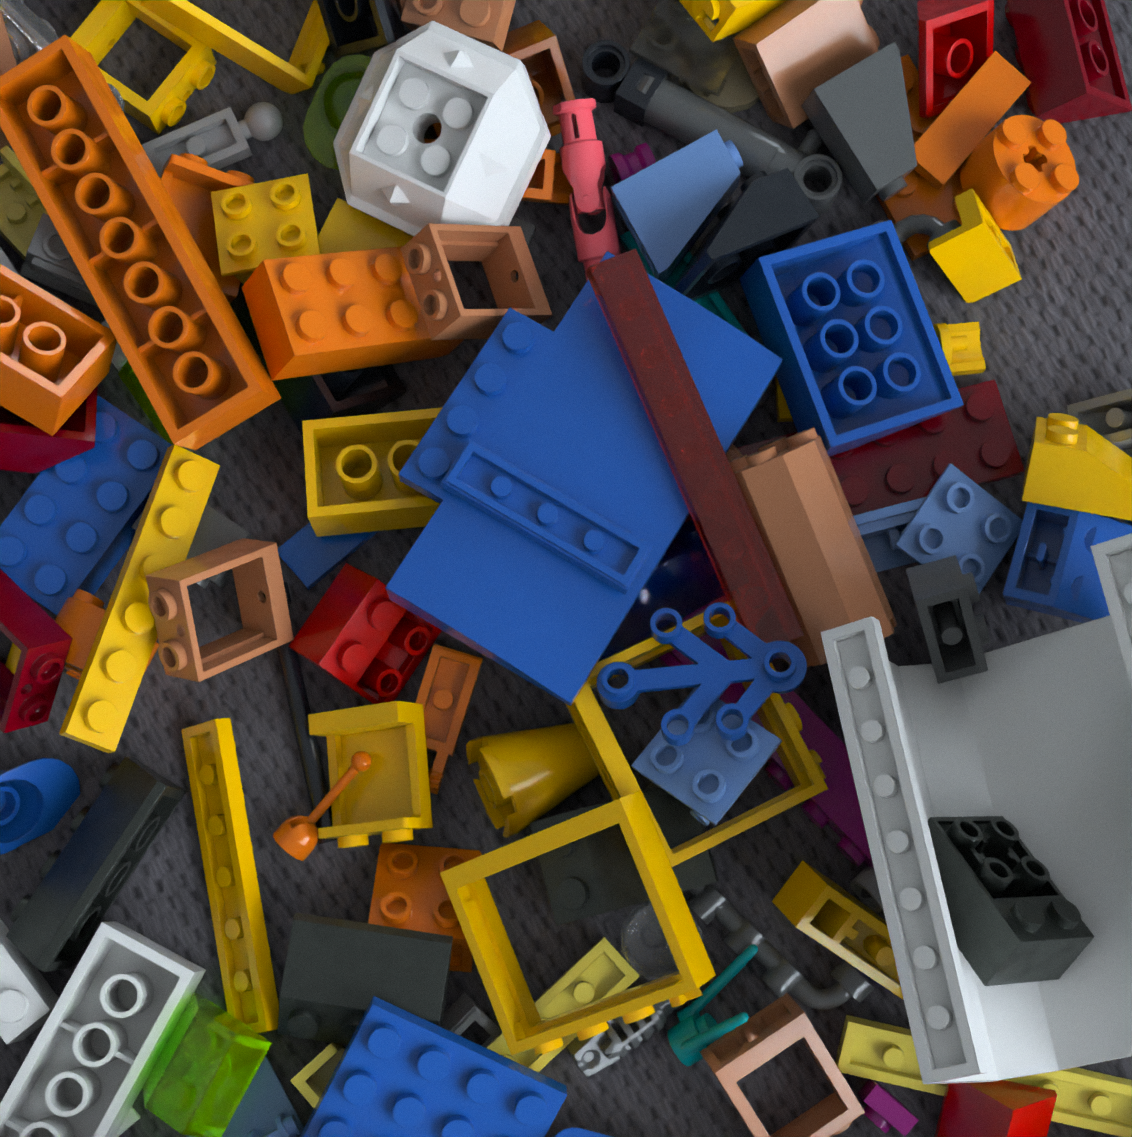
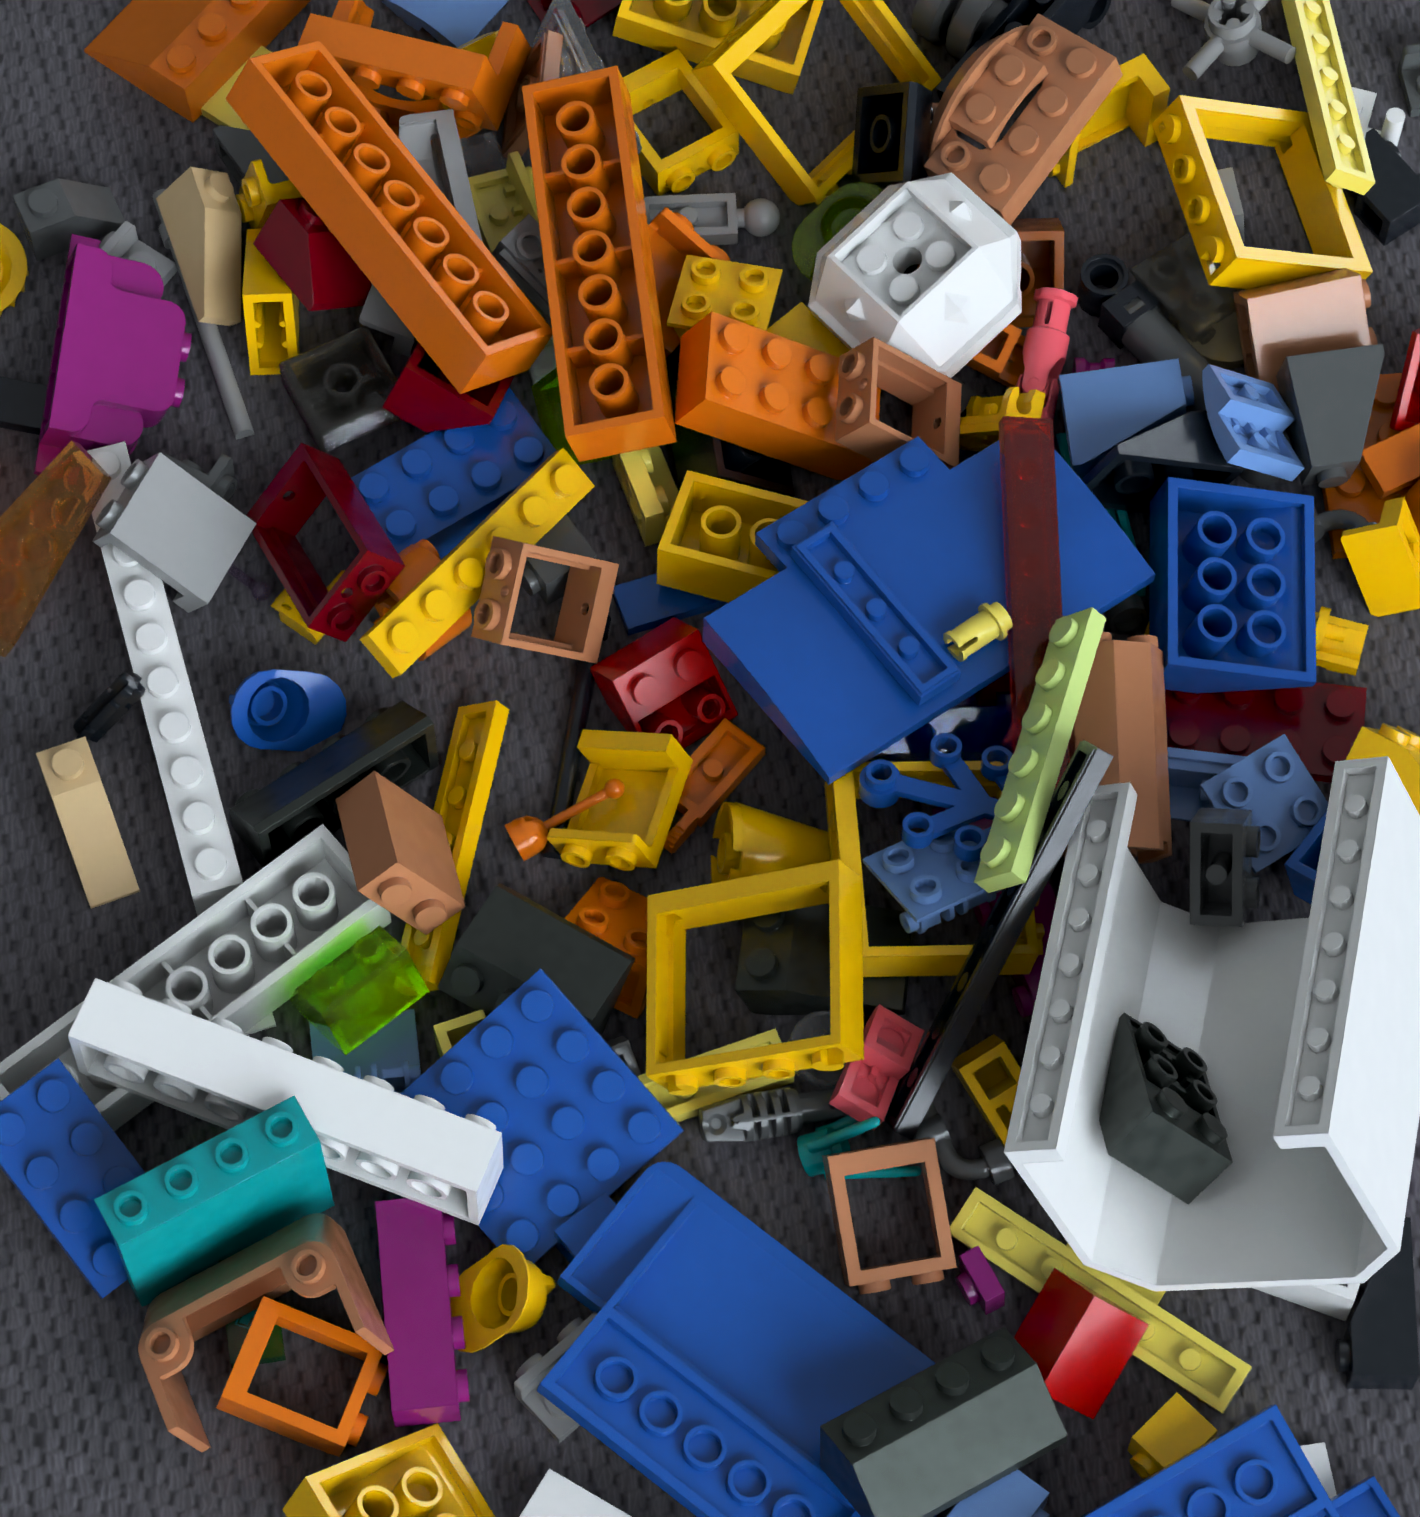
camera: 25 degrees right, 15 degrees down
(187, 923) = (400, 853): none -> nougat brick
(275, 445) = (647, 489): none -> light yellow bracket
(569, 245) = (983, 416): none -> yellow hinge
(651, 494) = (979, 630): none -> light yellow pin
(724, 931) = (870, 1084): none -> coral slope
(764, 605) = (1040, 751): none -> yellowish green plate
(795, 796) = (995, 943): none -> black tile
(801, 169) = (1249, 422): none -> medium blue slope

